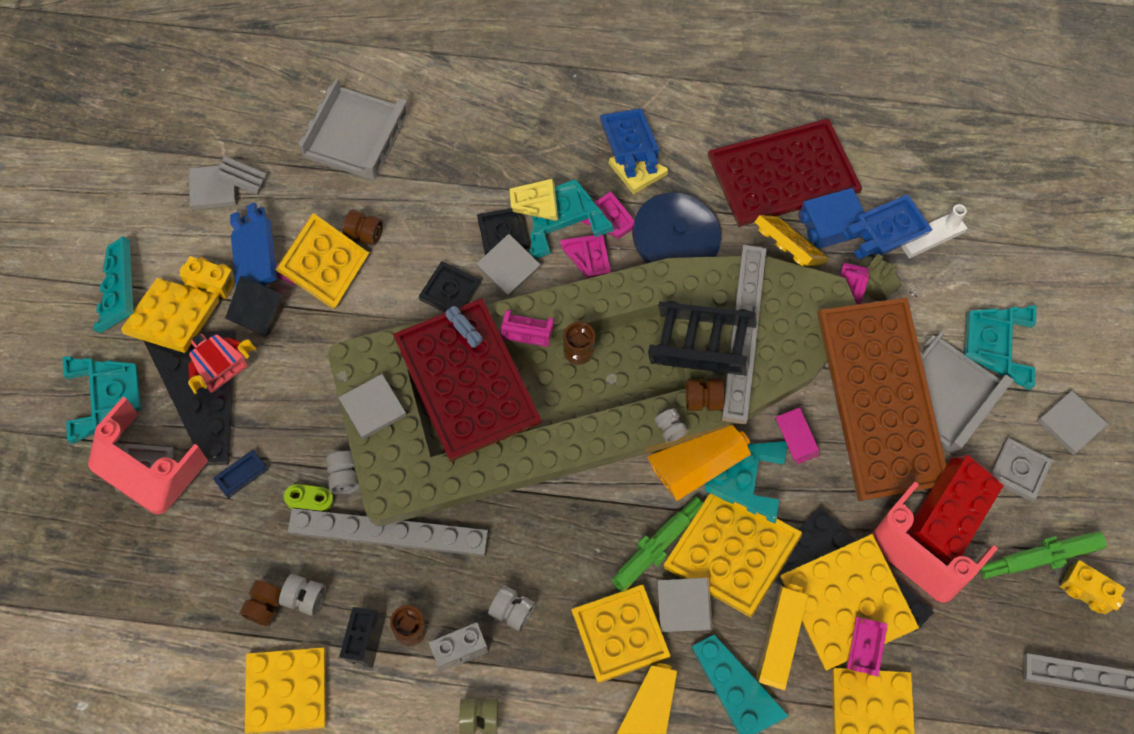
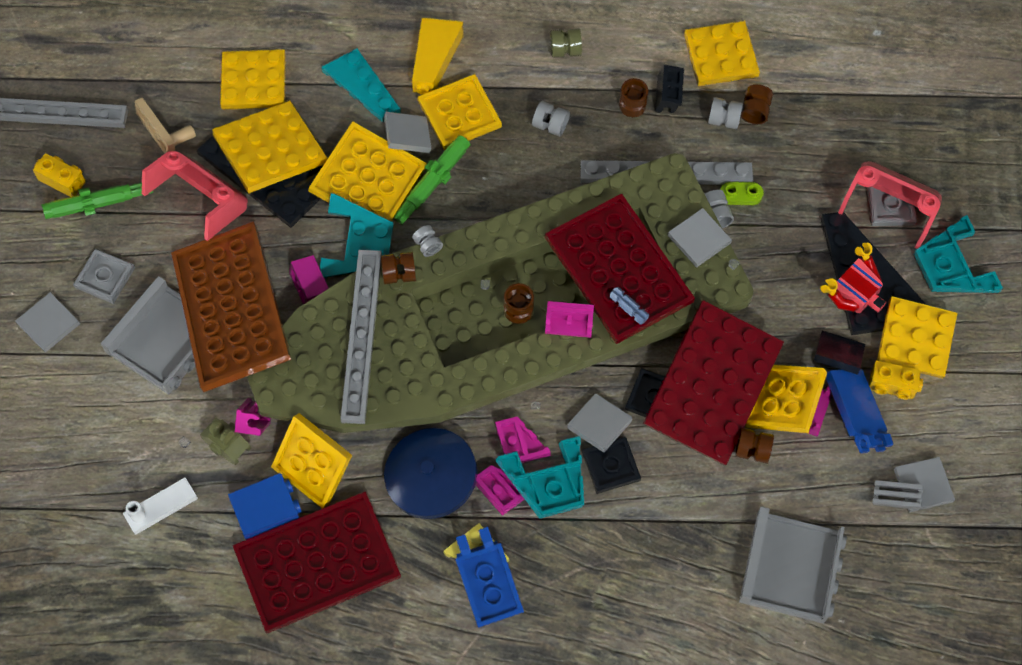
camera: 175 degrees right, 0 degrees up
(116, 286) = (977, 356): teal wing -> none
(240, 474) = (806, 208): dark blue tile -> none
(389, 277) = (713, 383): none -> dark red plate
(458, 647) = (590, 87): light grey brick -> none
(535, 200) = (581, 489): light yellow wing -> none
(699, 460) = (399, 234): light orange slope -> none
(706, 360) = (416, 299): black fence -> none
(782, 637) = (327, 104): yellow slope -> none
(867, 646) = (257, 106): dark pink hinge -> none
(888, 227) = (209, 490): blue tile -> none
(955, 508) = (171, 224): red brick -> none
(972, 625) = (165, 141): none -> tan piece
(990, 341) = (114, 395): teal wing -> none

